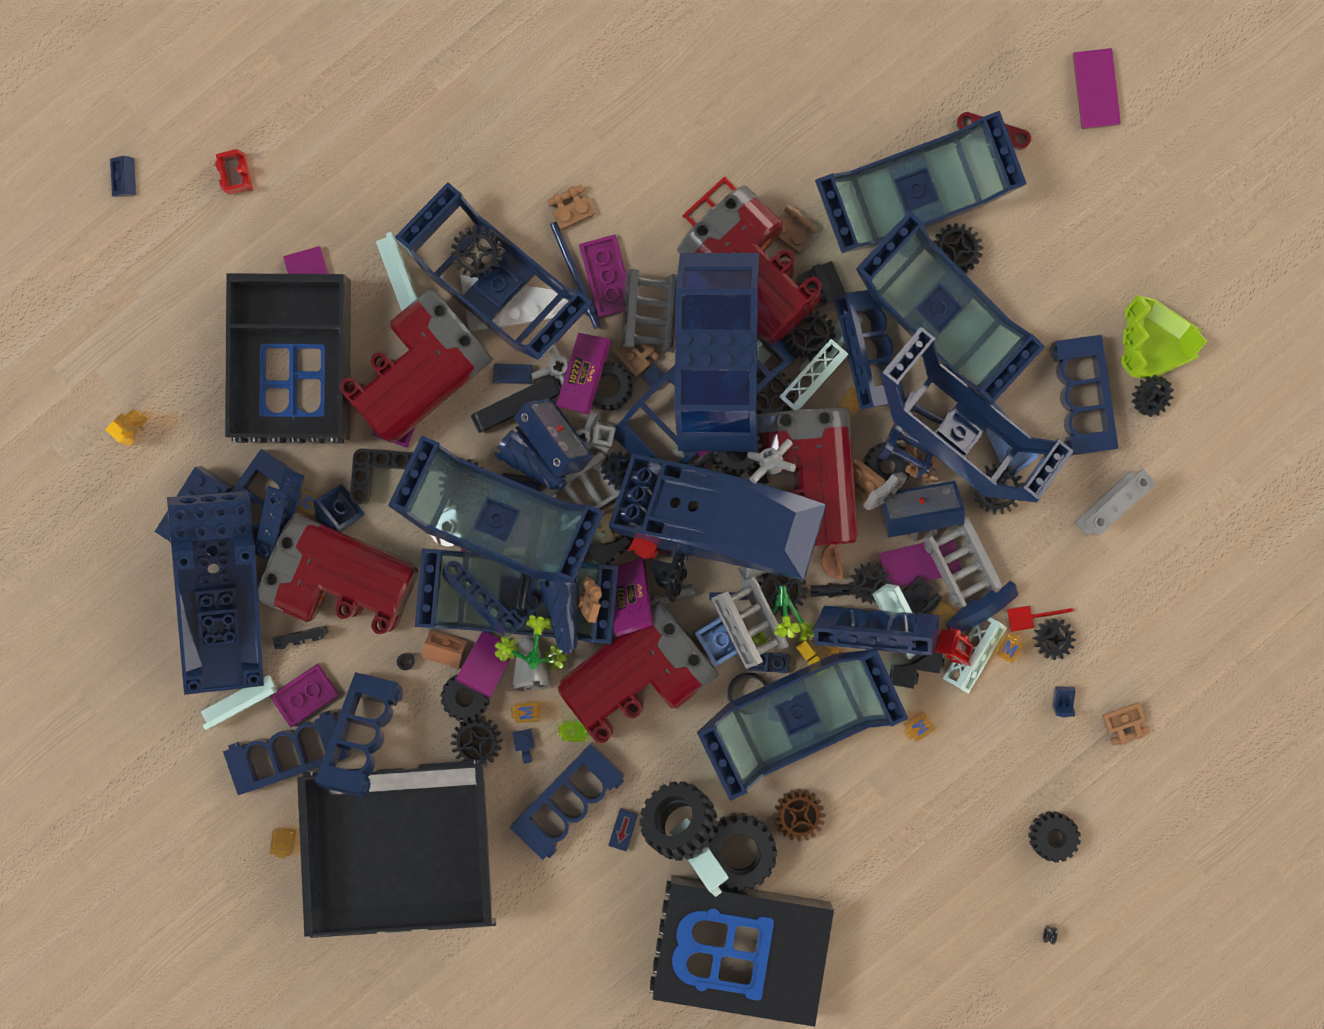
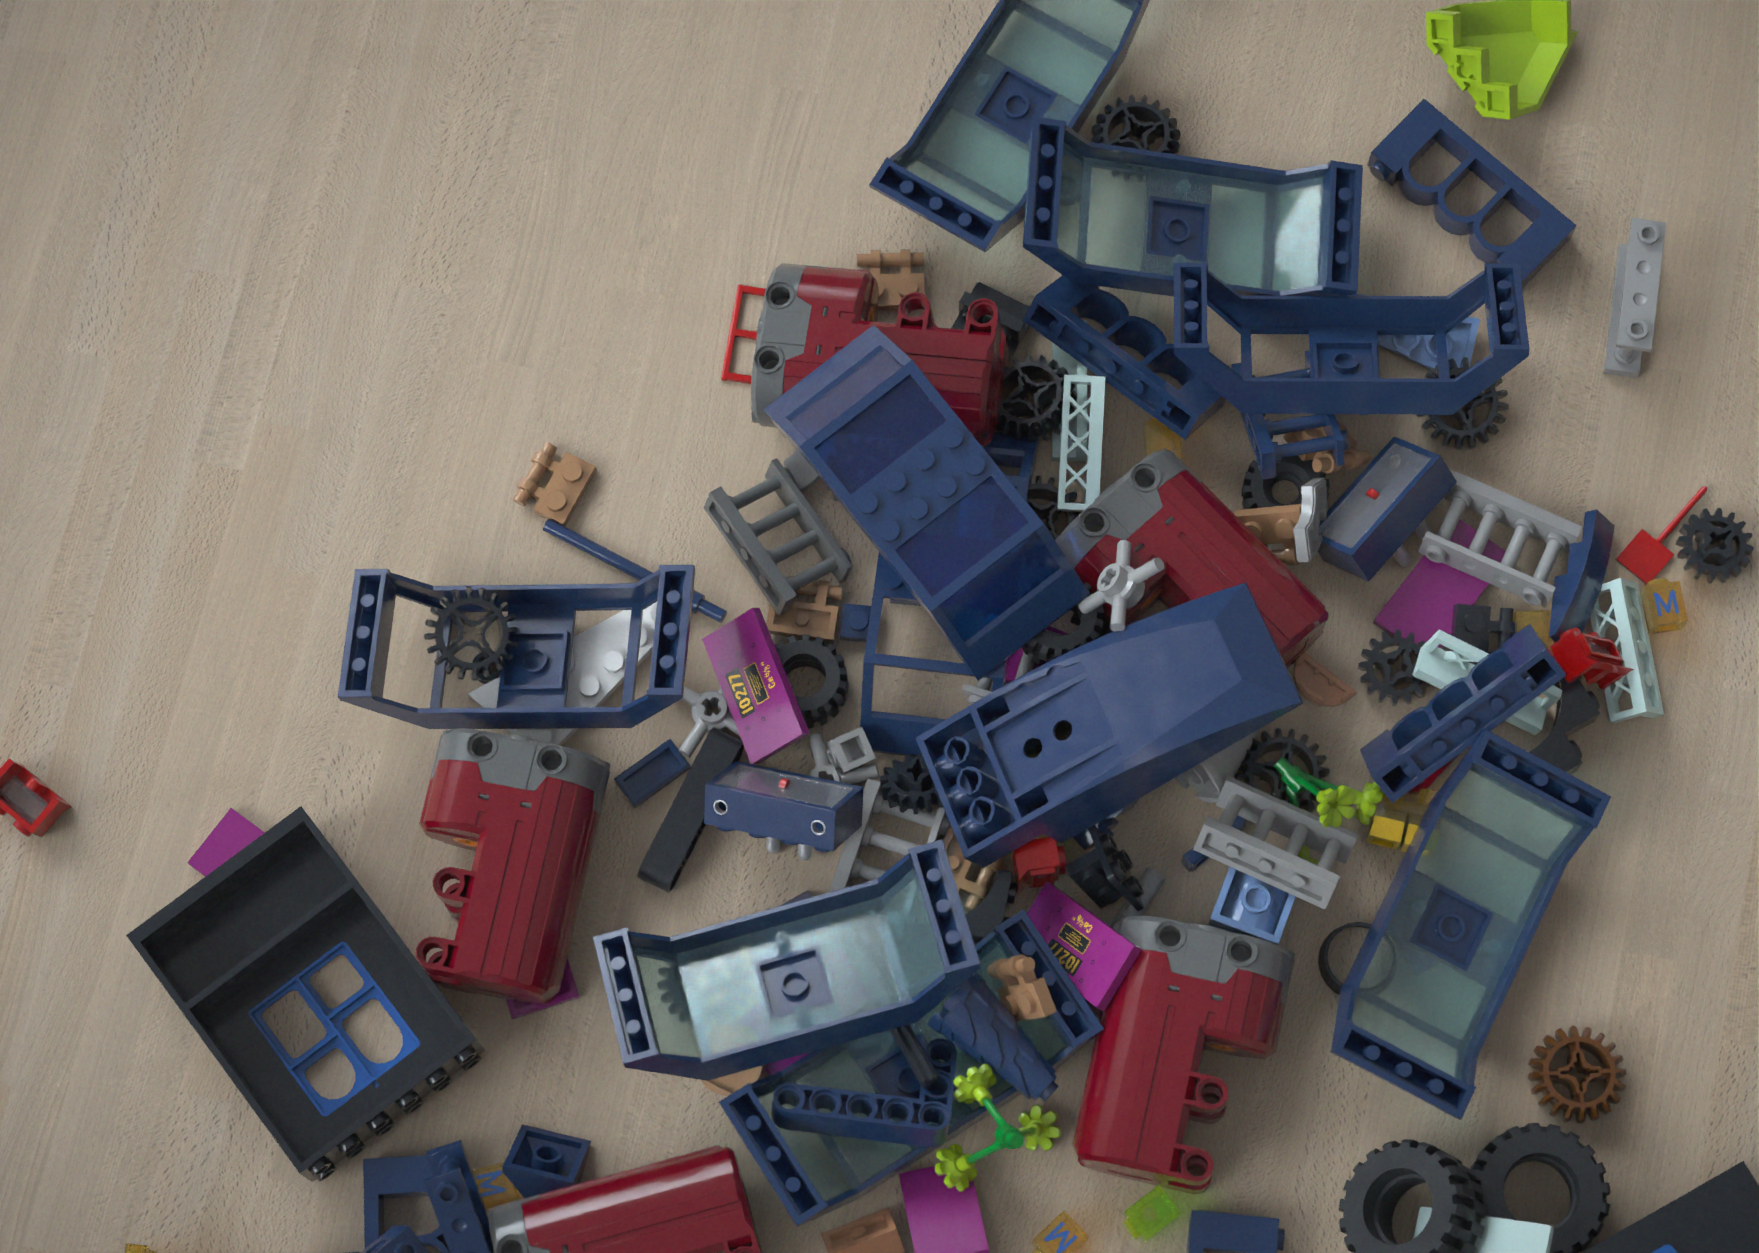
camera: 30 degrees left, 15 degrees down
(367, 467) = (545, 1055): black beam -> none
(397, 270) = (372, 756): light aqua fence -> none
(522, 455) = (769, 868): dark blue cone -> none
(524, 676) = (1017, 1175): light grey cone -> none
(605, 274) = (676, 533): magenta tile -> none
(773, 663) = (1353, 891): dark blue slope -> none
(830, 590) = (1349, 723): black pin -> none
(918, 727) = (1635, 813): clear yellow brick -> none
(1152, 395) = (1561, 126): black gear -> none

